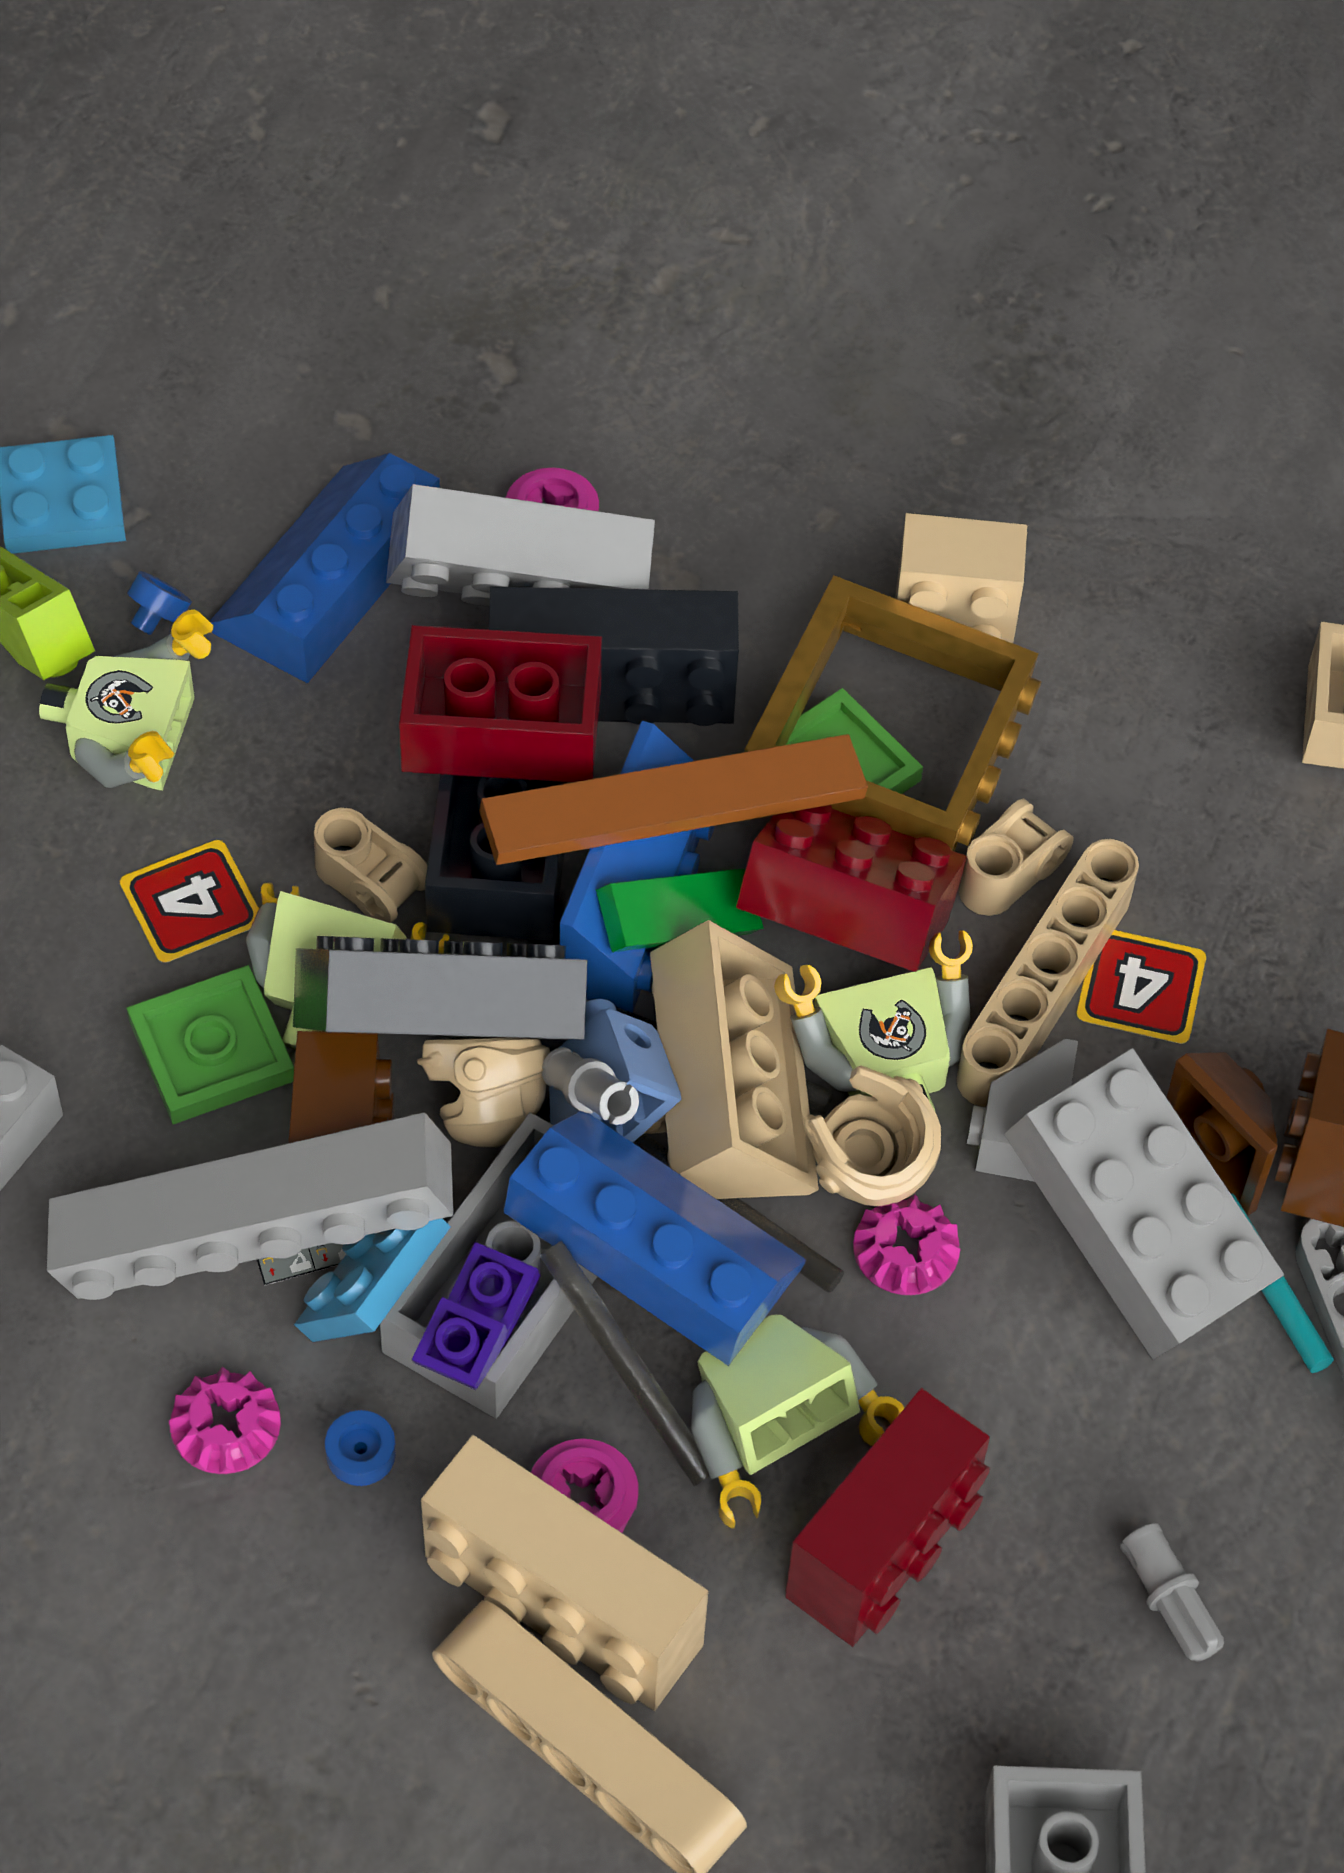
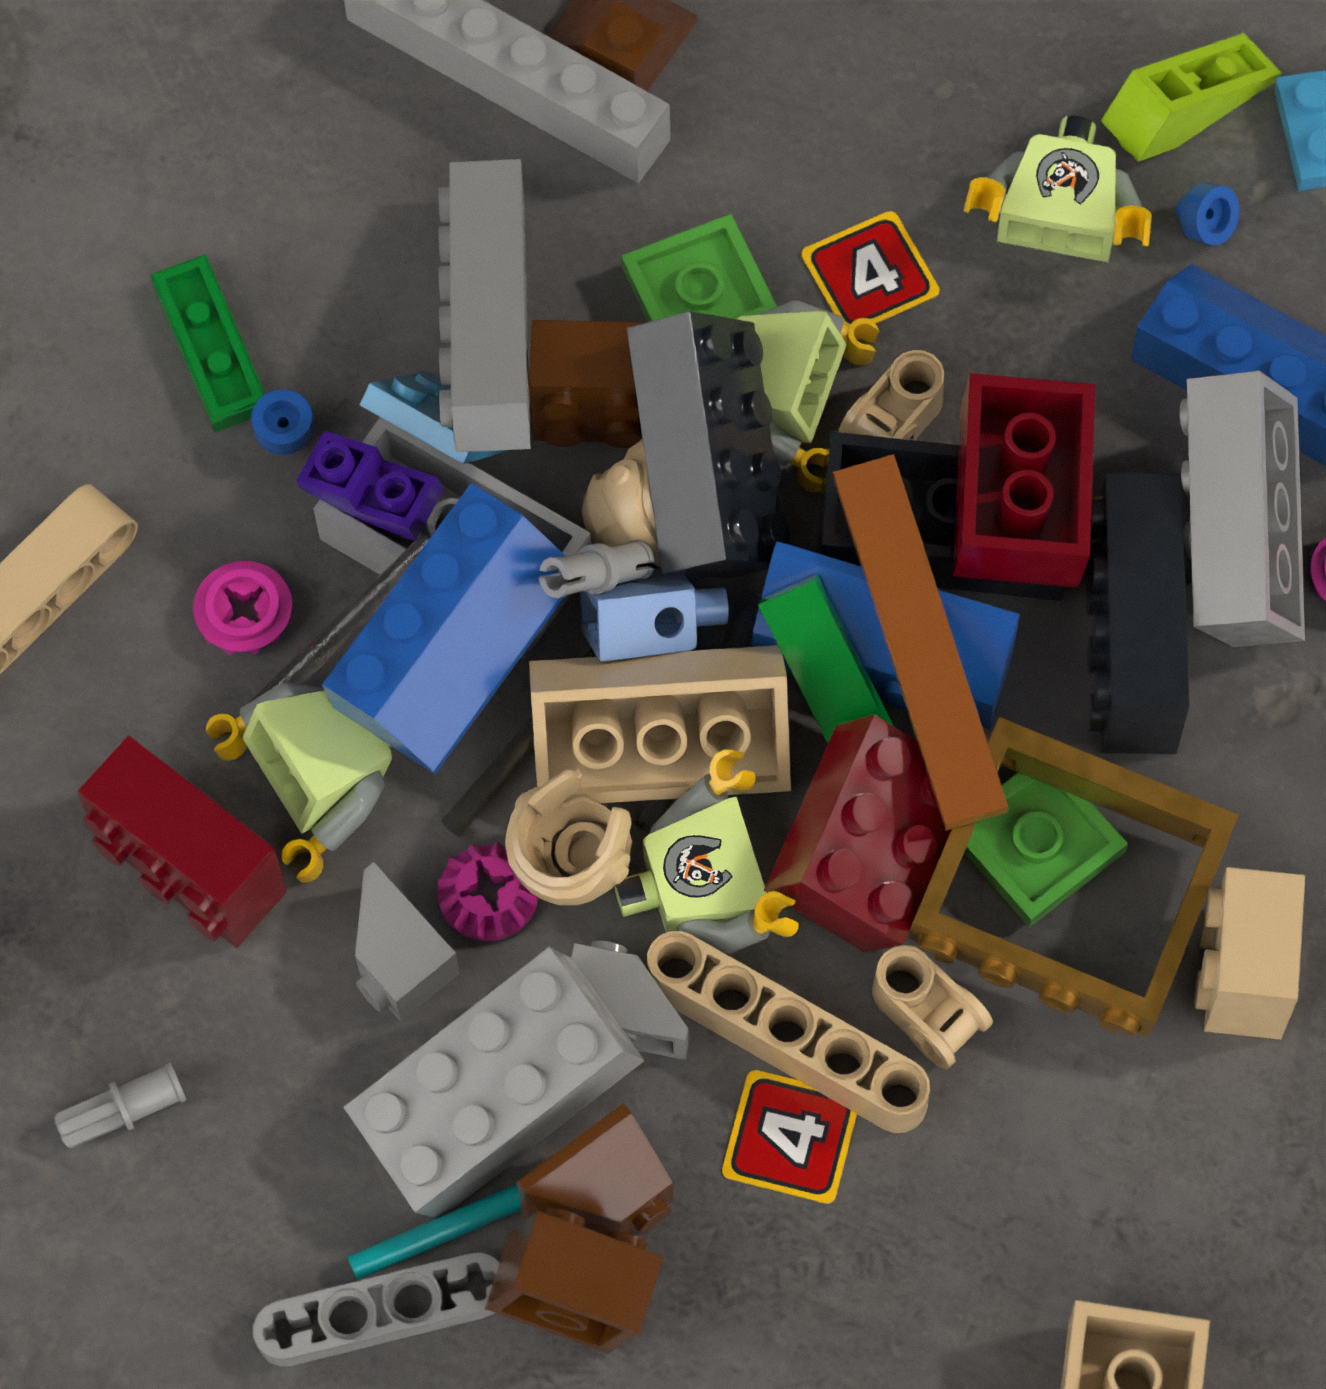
camera: 95 degrees right, 10 degrees up
(216, 1448) = (317, 346): dark pink gear -> none
(239, 1545) = (209, 341): none -> green tile
(563, 1574) = (141, 574): tan brick -> none
(980, 1321) = (397, 949): none -> light grey slope

